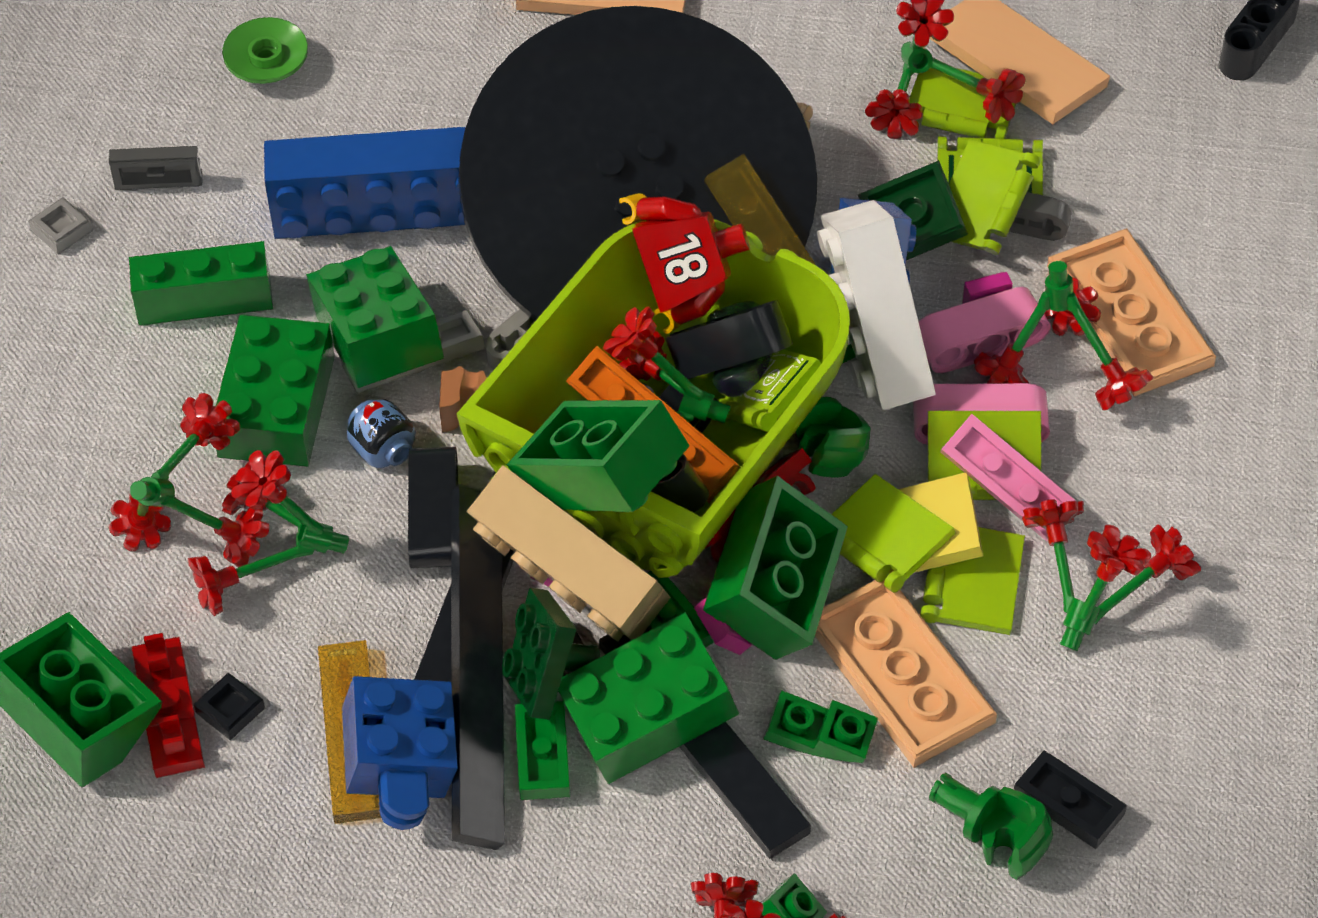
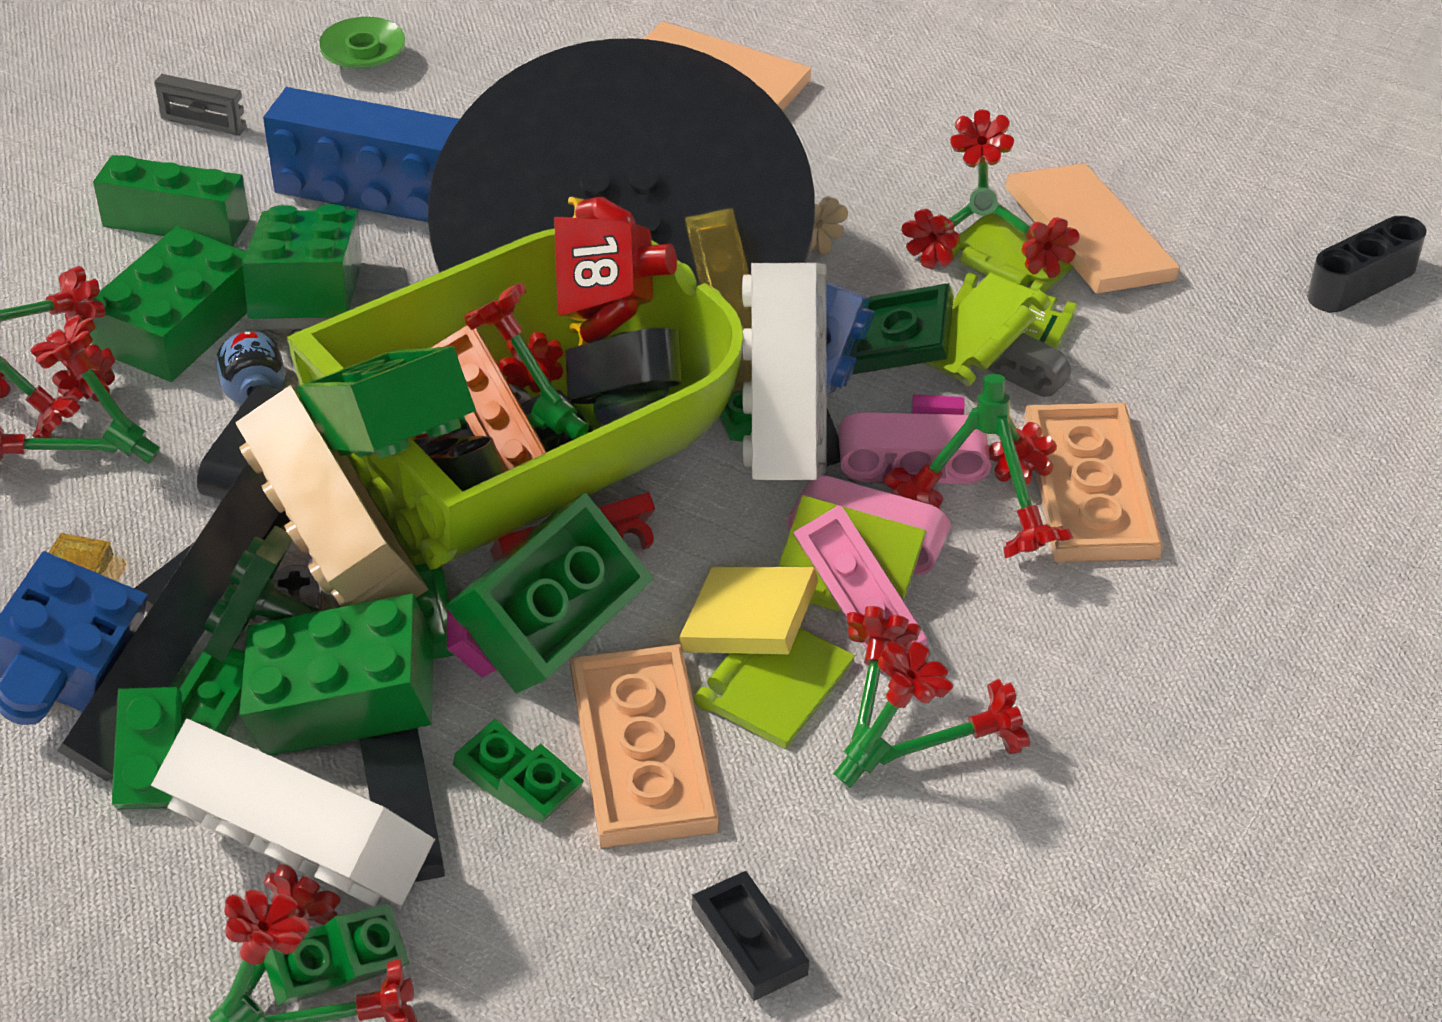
camera: 20 degrees right, 10 degrees down
(60, 225) = (89, 130): light grey tile -> none
(525, 812) = (144, 735): none -> green plate
(691, 828) = (292, 816): none -> white brick
(833, 438) = (692, 495): green piece -> none
(889, 532) = (699, 603): lime piece -> none
(997, 820) = (652, 928): green piece -> none

